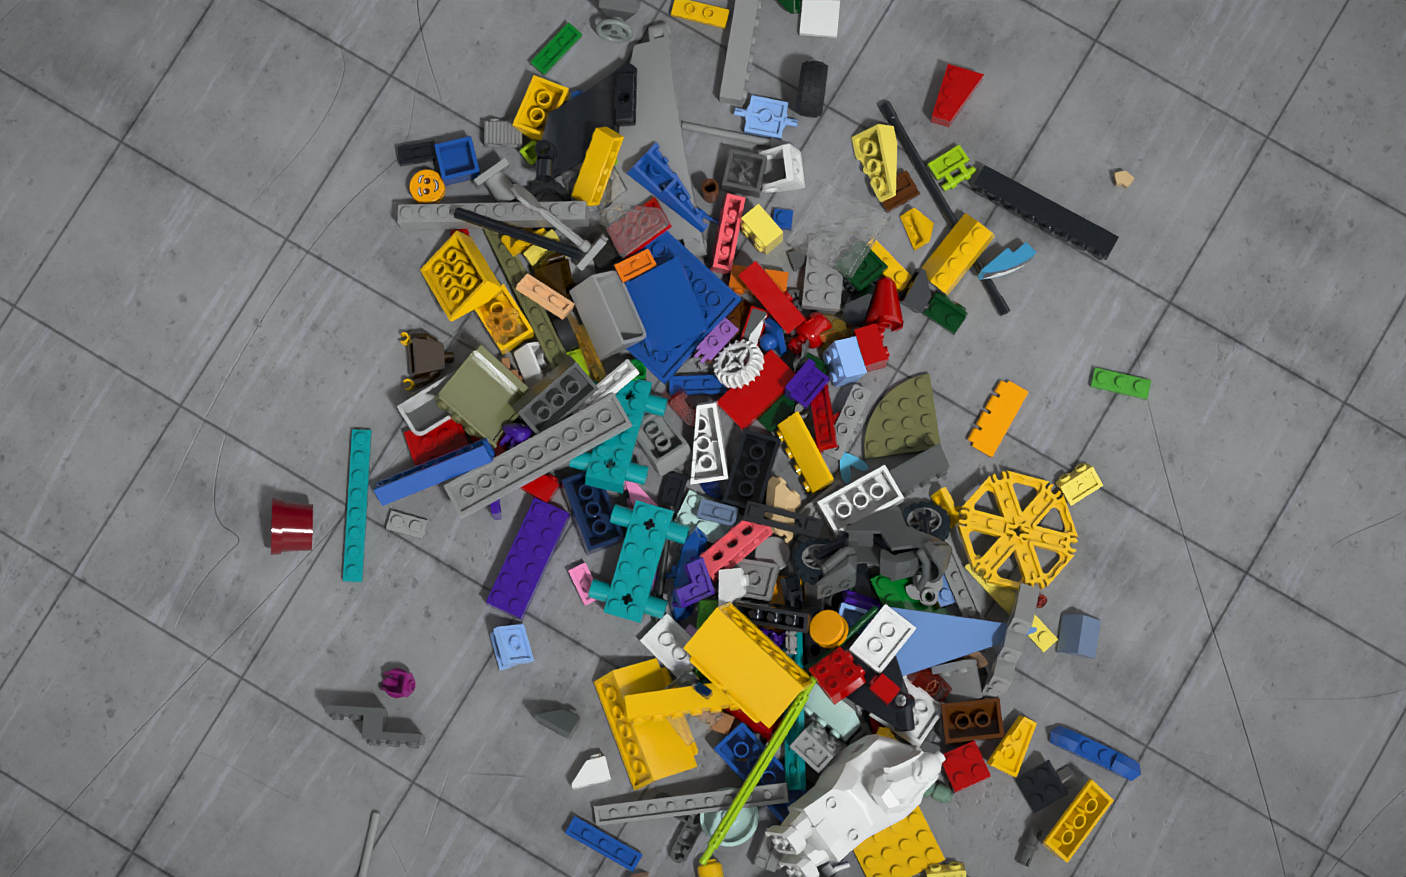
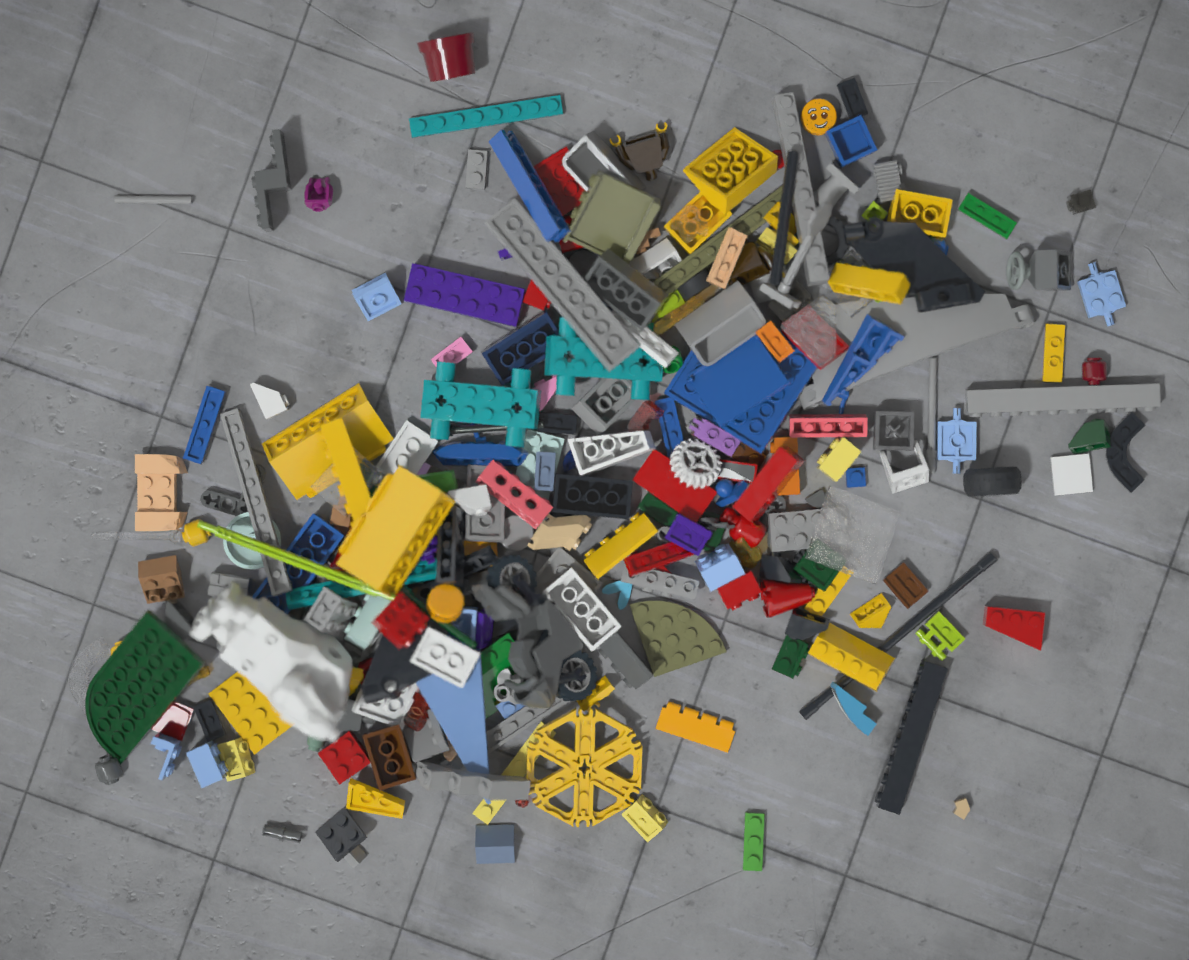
camera: 75 degrees right, 10 degrees up
(516, 434) = (582, 260): dark purple piece -> none
(560, 721) = (311, 359): dark grey slope -> none
(698, 586) = (466, 468): dark purple panel -> none
(703, 690) = (360, 492): clear blue tile -> none
(710, 197) = (875, 397): reddish brown piece -> none
(755, 514) = (546, 565): black container -> none
(791, 642) = (426, 568): light grey piece -> none
(878, 155) = (937, 561): light yellow wedge -> none
(884, 688) = (396, 668): red brick -> none
(1077, 821) = (312, 875): yellow slope -> none
(1095, 753) = (384, 880): blue brick -> none

